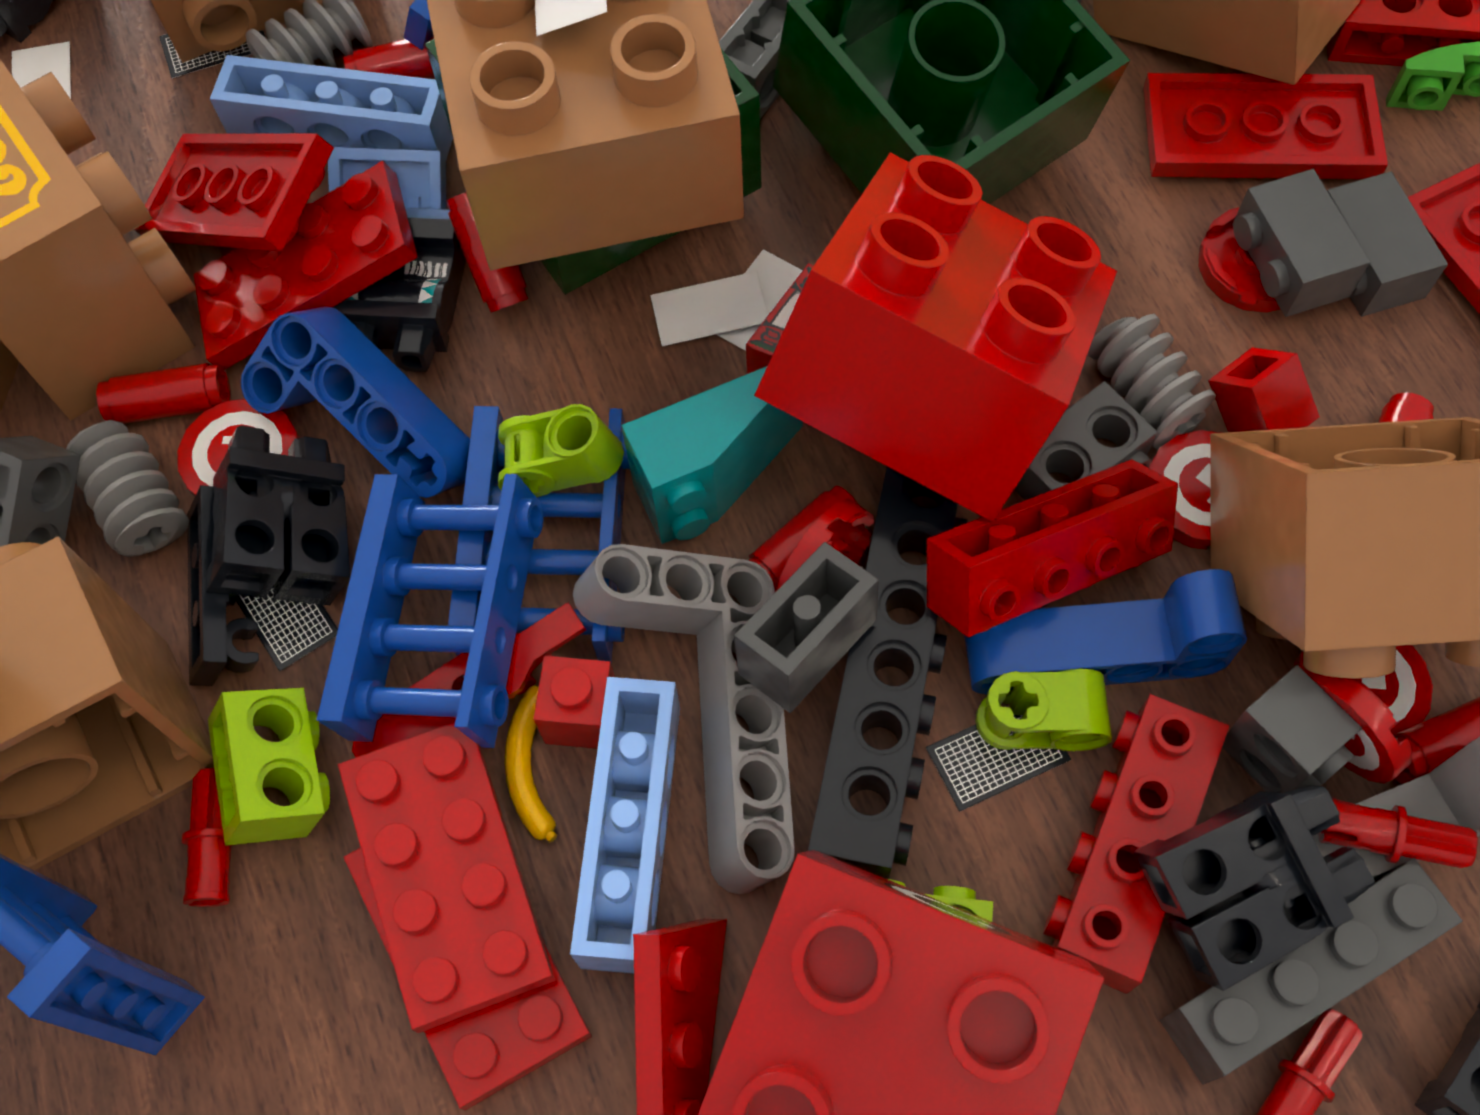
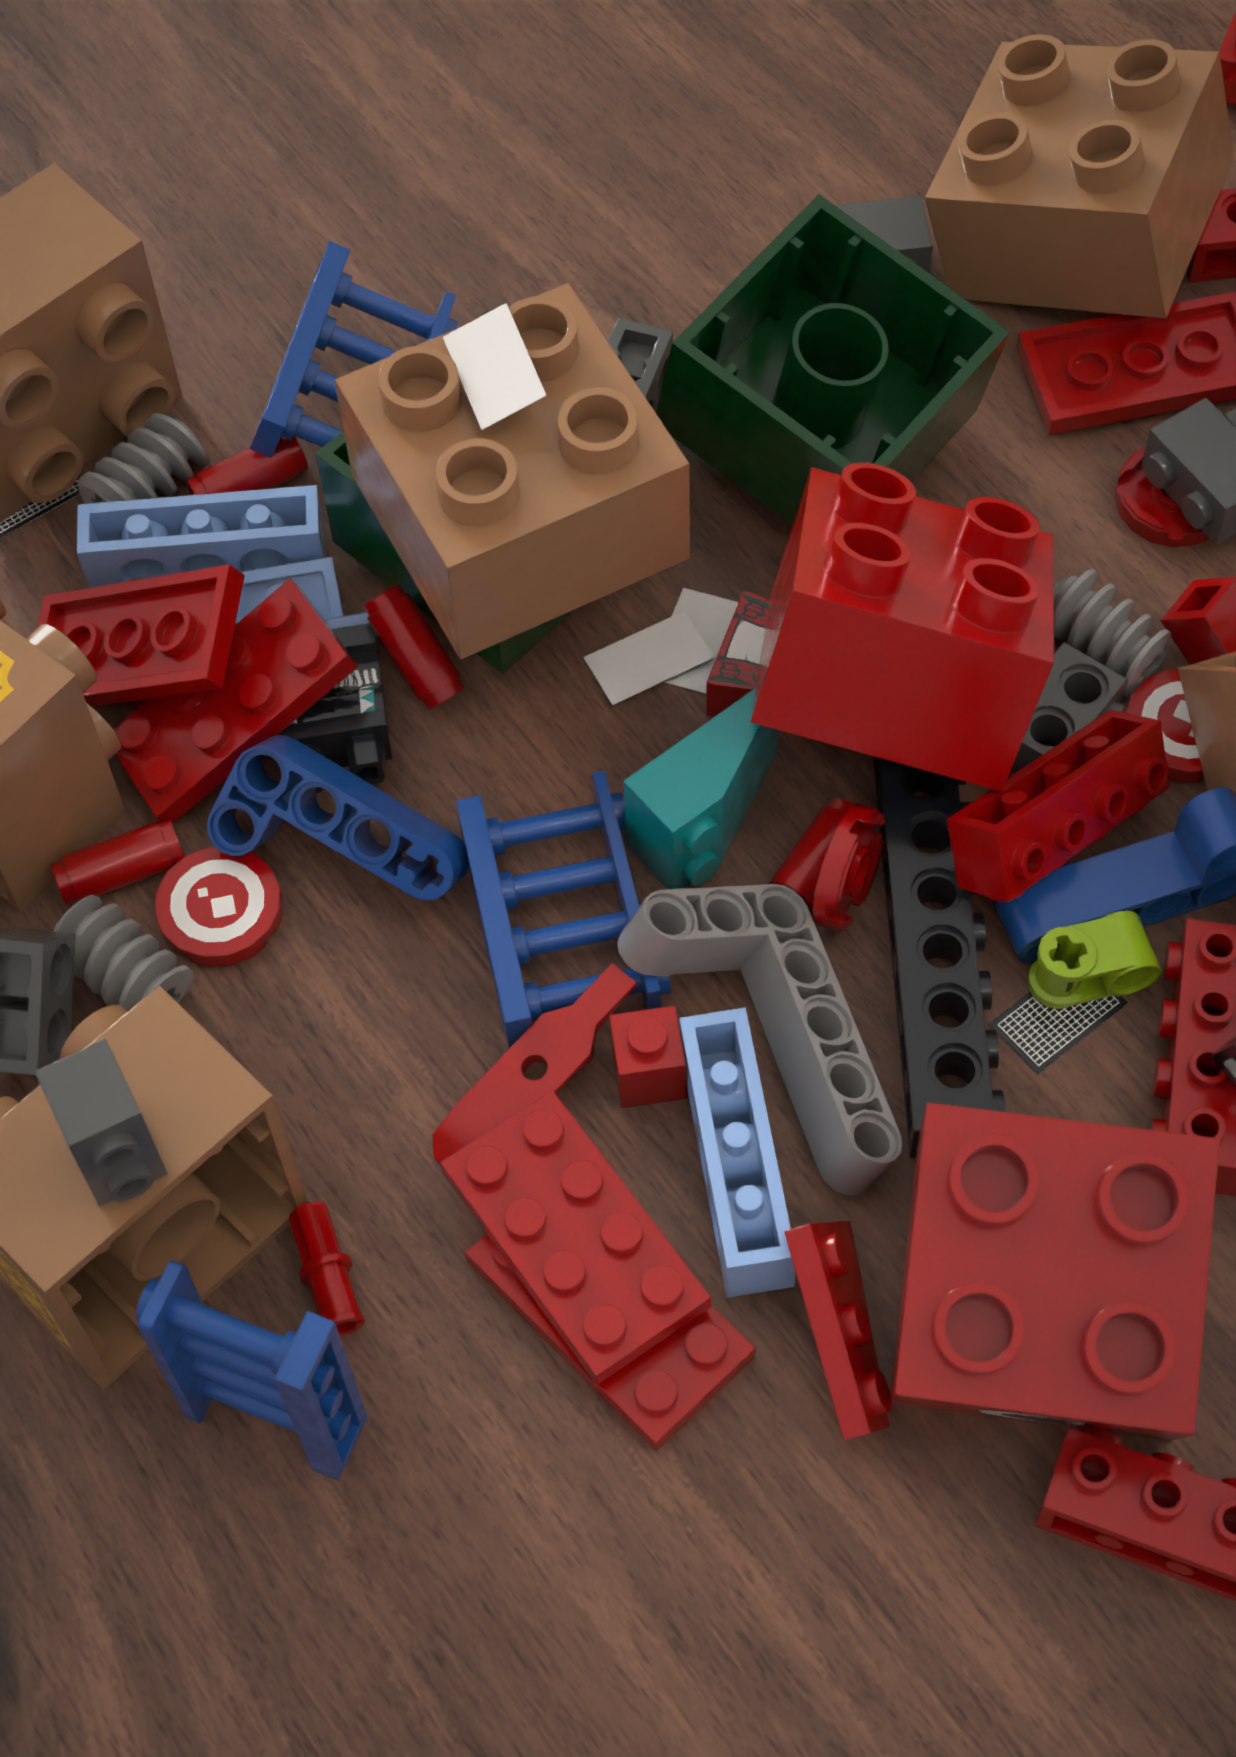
camera: 15 degrees left, 5 degrees down
(208, 634) = (234, 1019): black plate -> none
(249, 763) = (364, 1184): lime brick -> none
(279, 521) = (297, 954): black hips -> none
(288, 627) = (312, 1043): black sticker -> none
(374, 599) = (425, 978): blue fence -> none
(519, 770) = (604, 1131): yellow piece -> none
(559, 449) = (551, 823): lime piece -> none
(807, 626) = (857, 926): dark grey brick -> none

